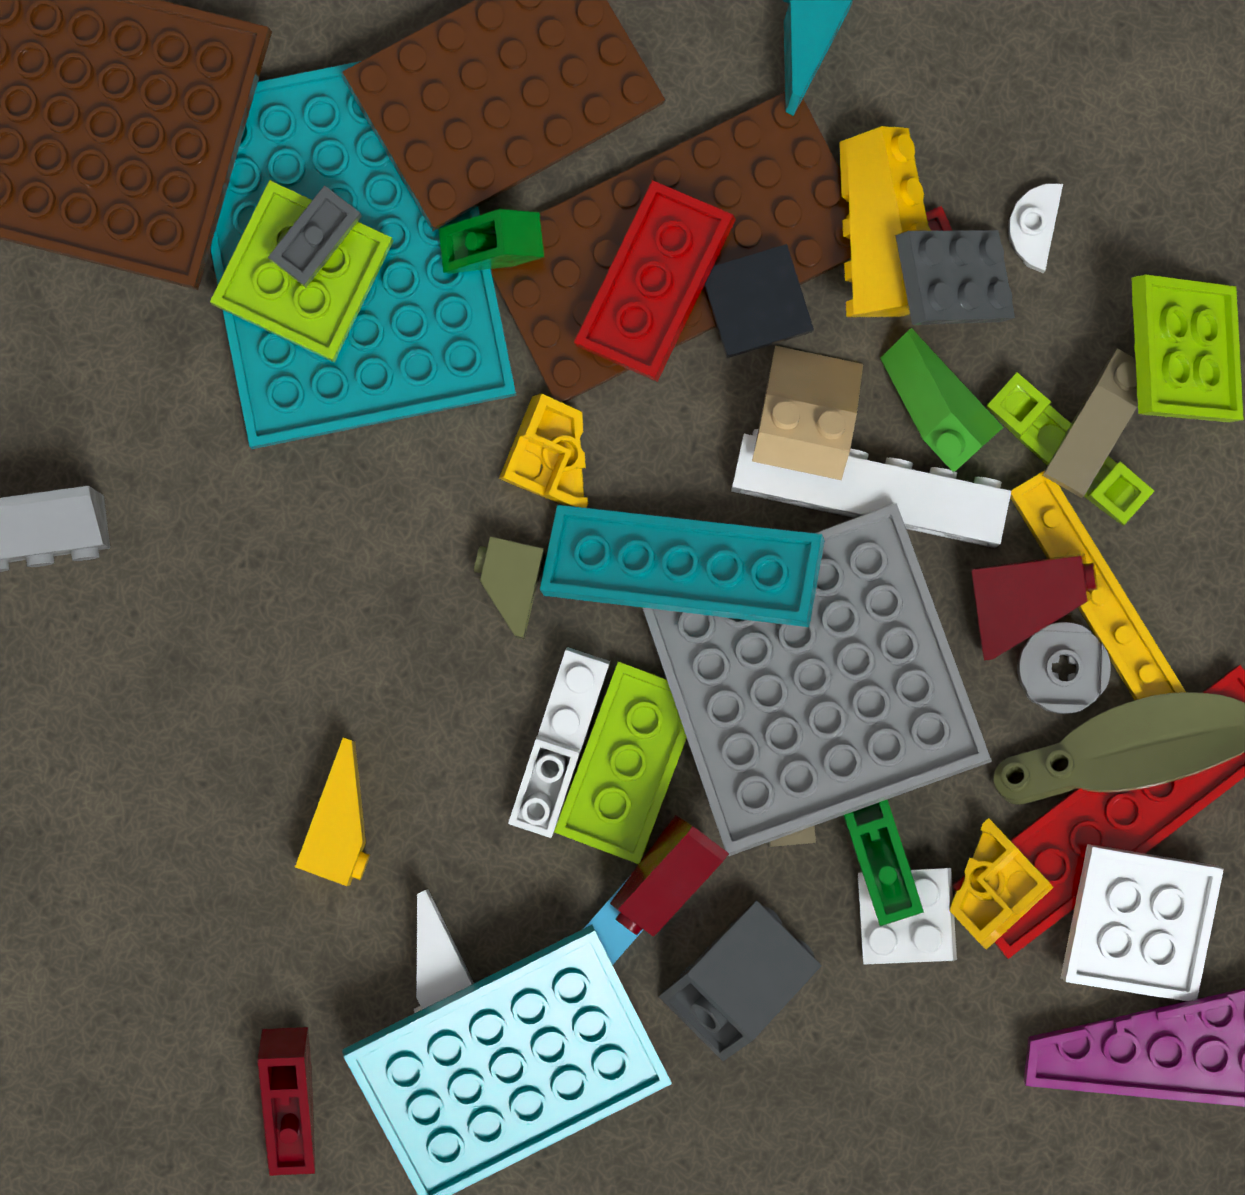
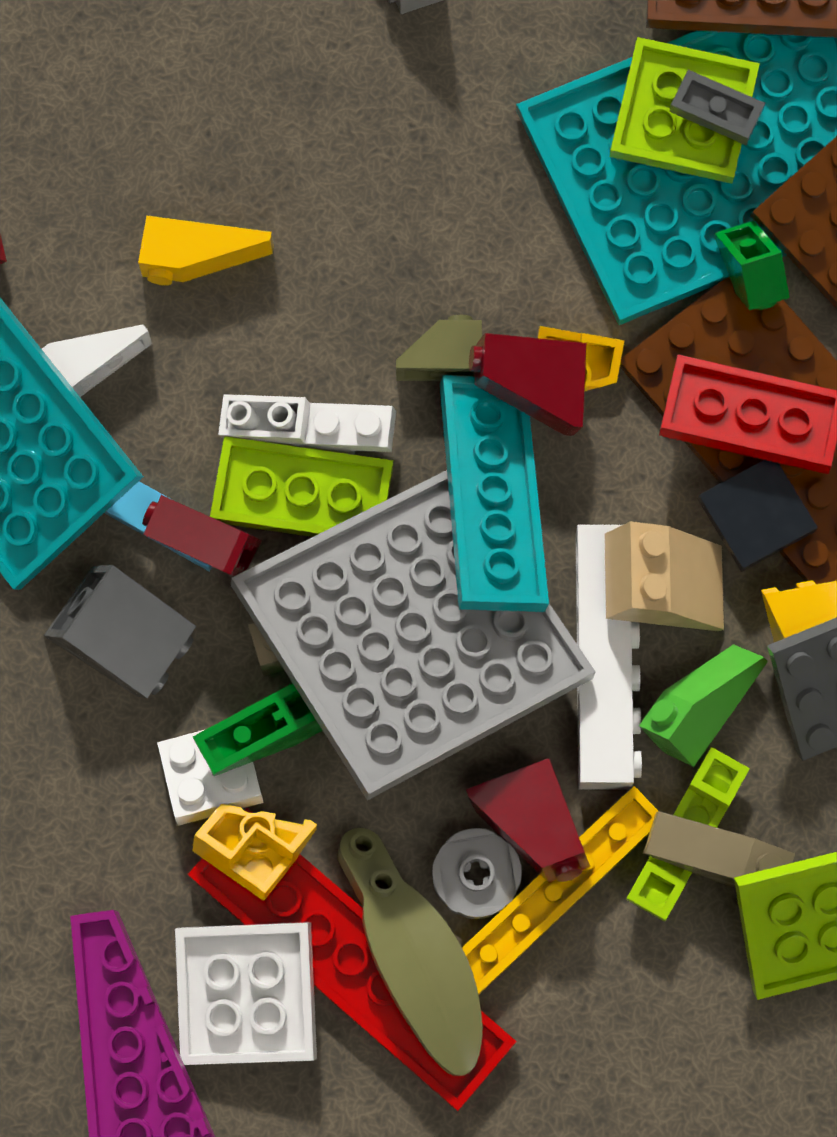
camera: 80 degrees right, 10 degrees down
(567, 494) = (534, 376): none -> dark red slope

